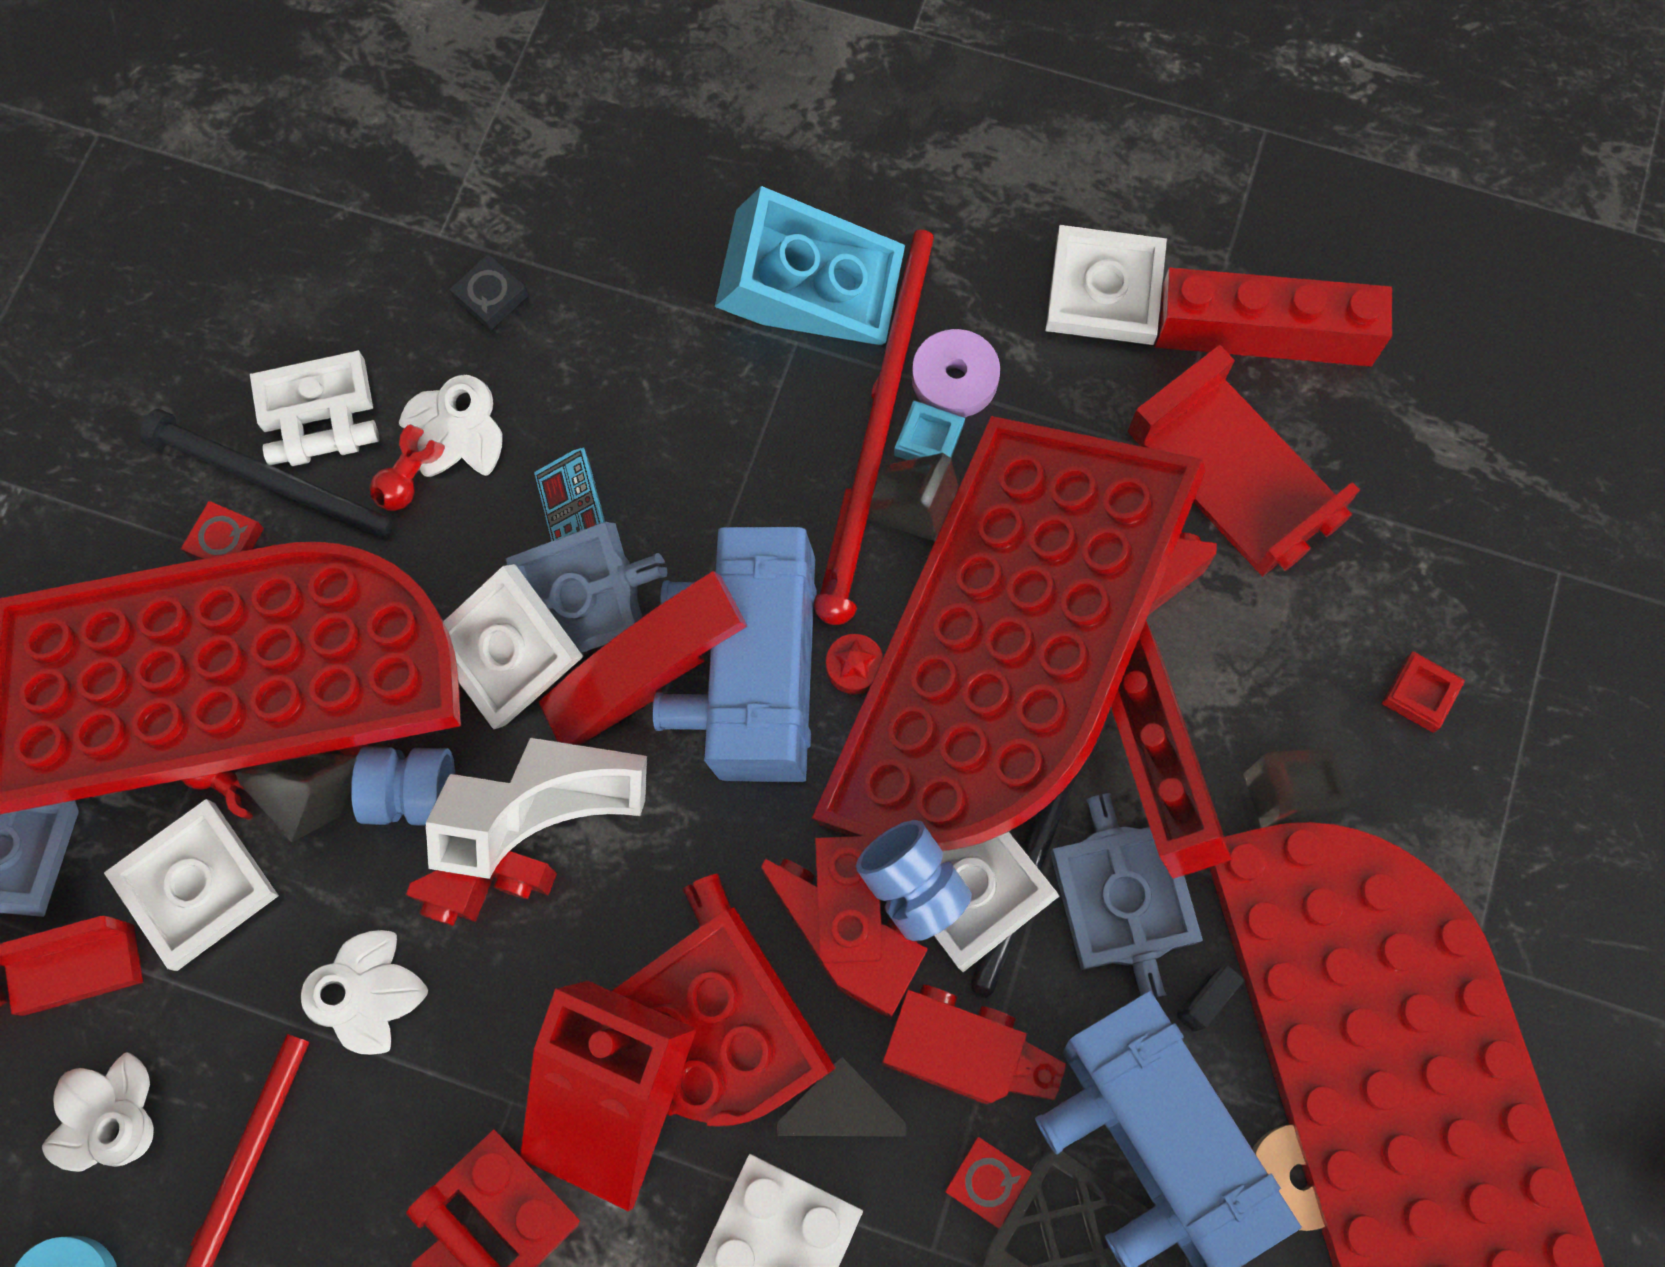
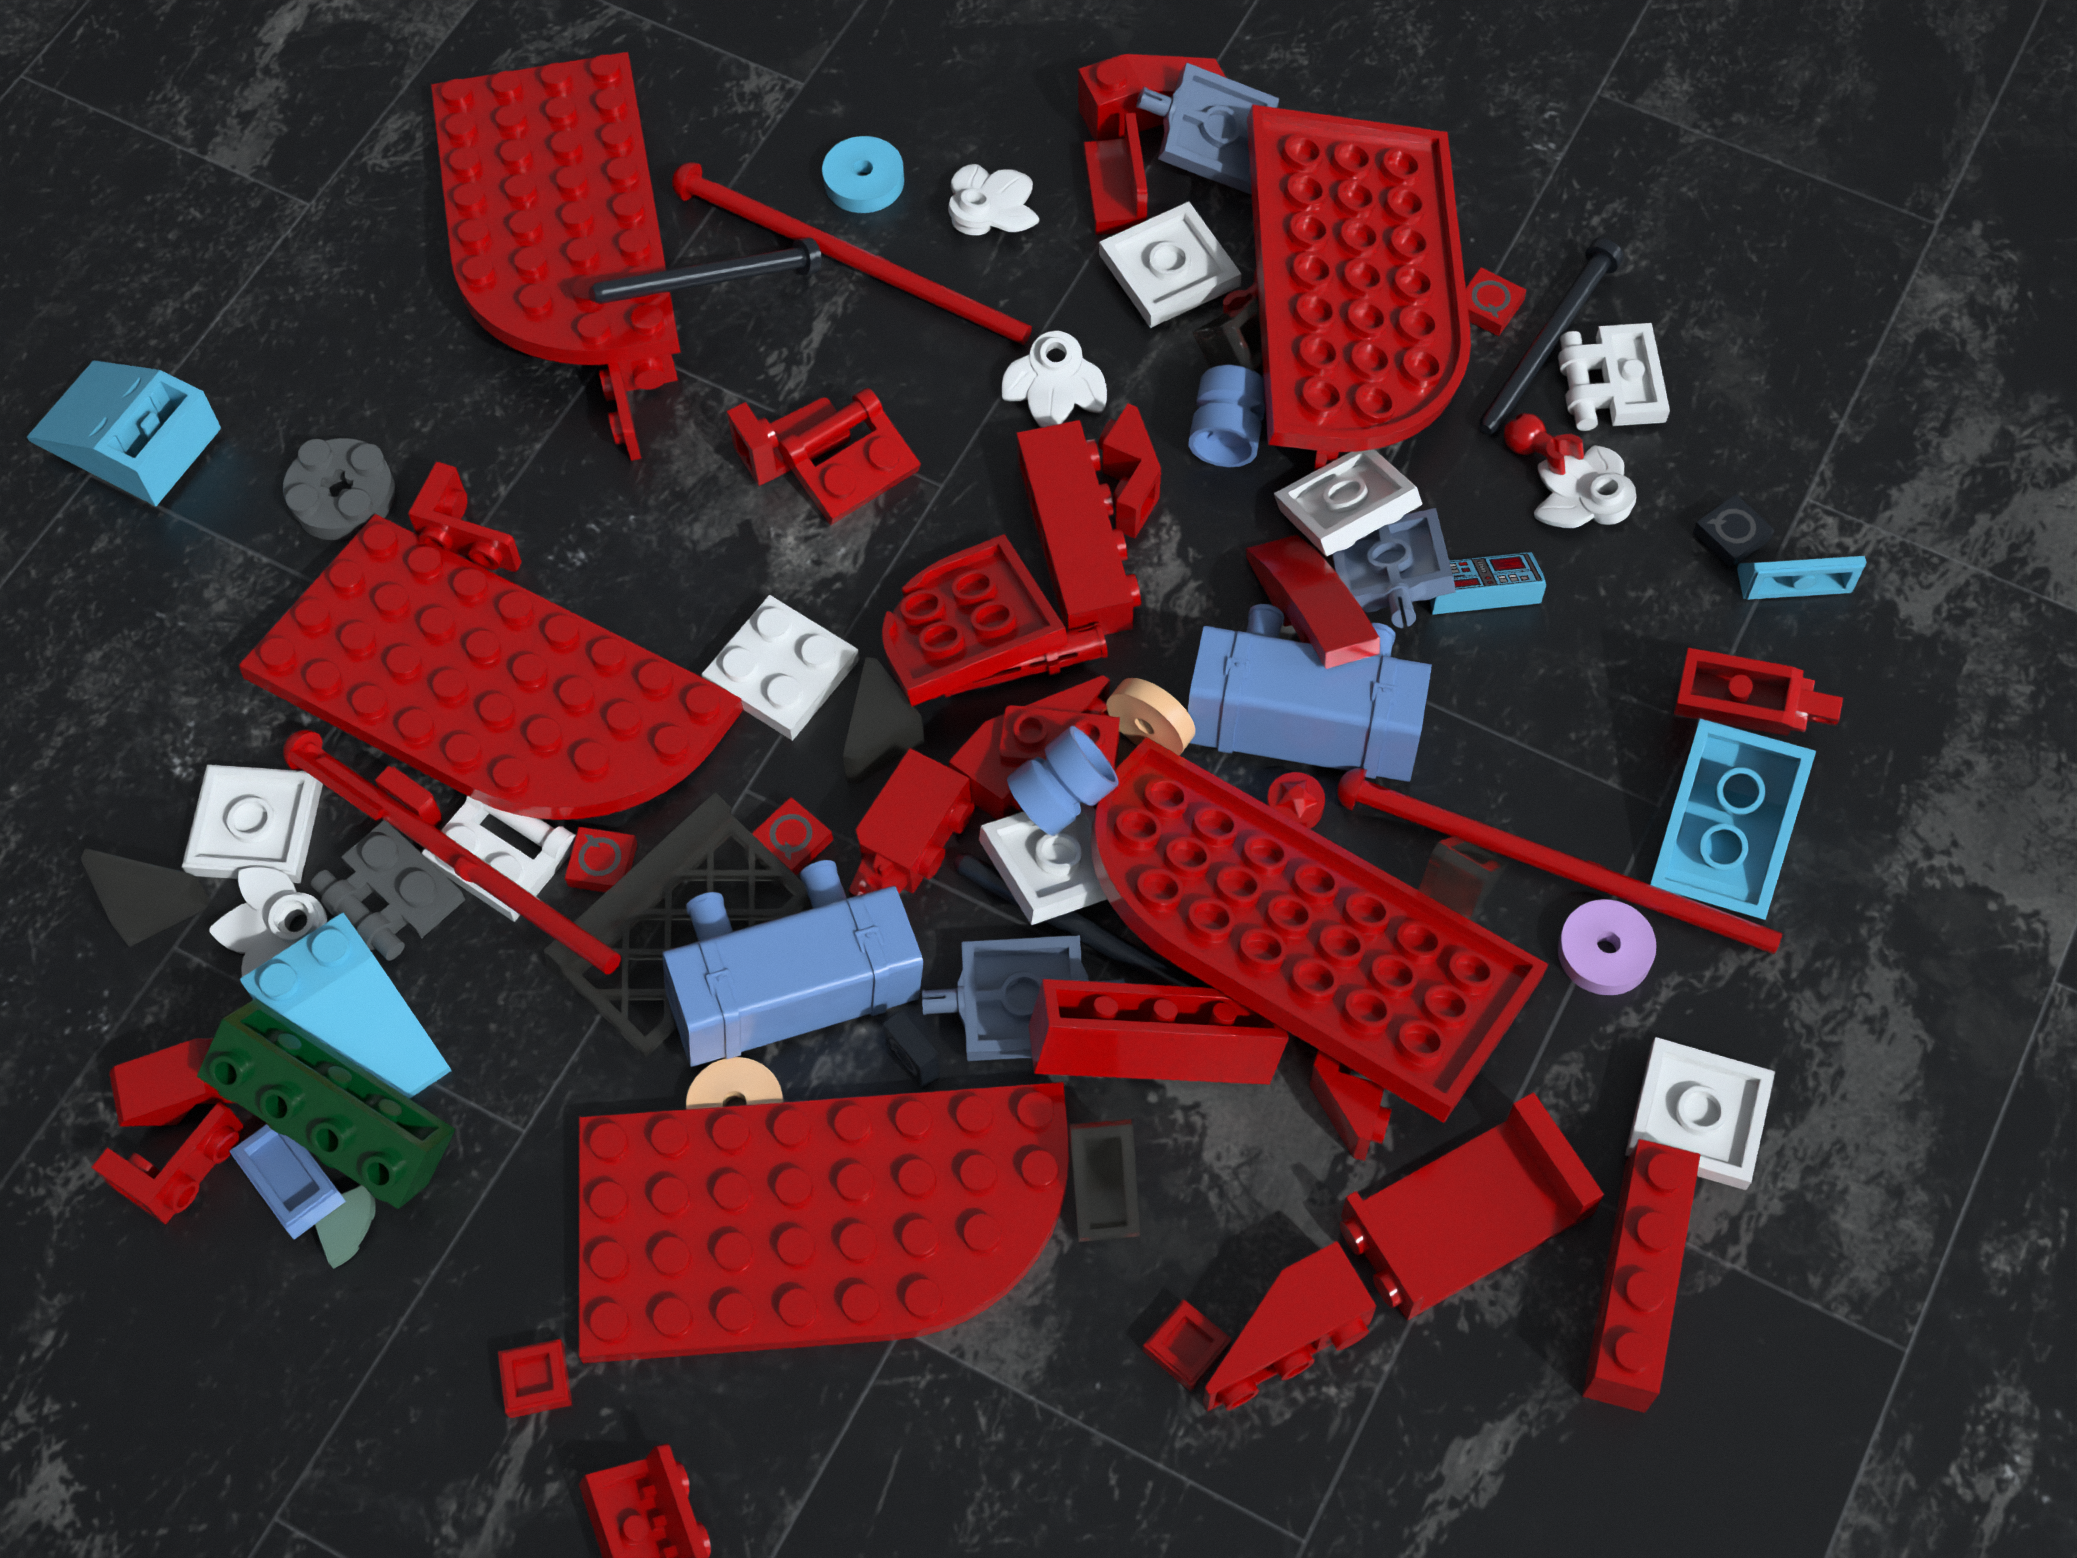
camera: 100 degrees right, 10 degrees down
(531, 232) = (1800, 577): none -> medium azure slope
(554, 782) = (1211, 523): white arch -> none
(564, 933) = (1075, 528): none -> red brick
(601, 1089) = (939, 531): red slope -> none
(686, 262) = (1751, 694): none -> red hinge
(796, 812) = (1151, 713): none -> light nougat piece
(928, 432) = (1535, 910): medium azure tile -> none
(1384, 595) = (1303, 1312): none -> red slope

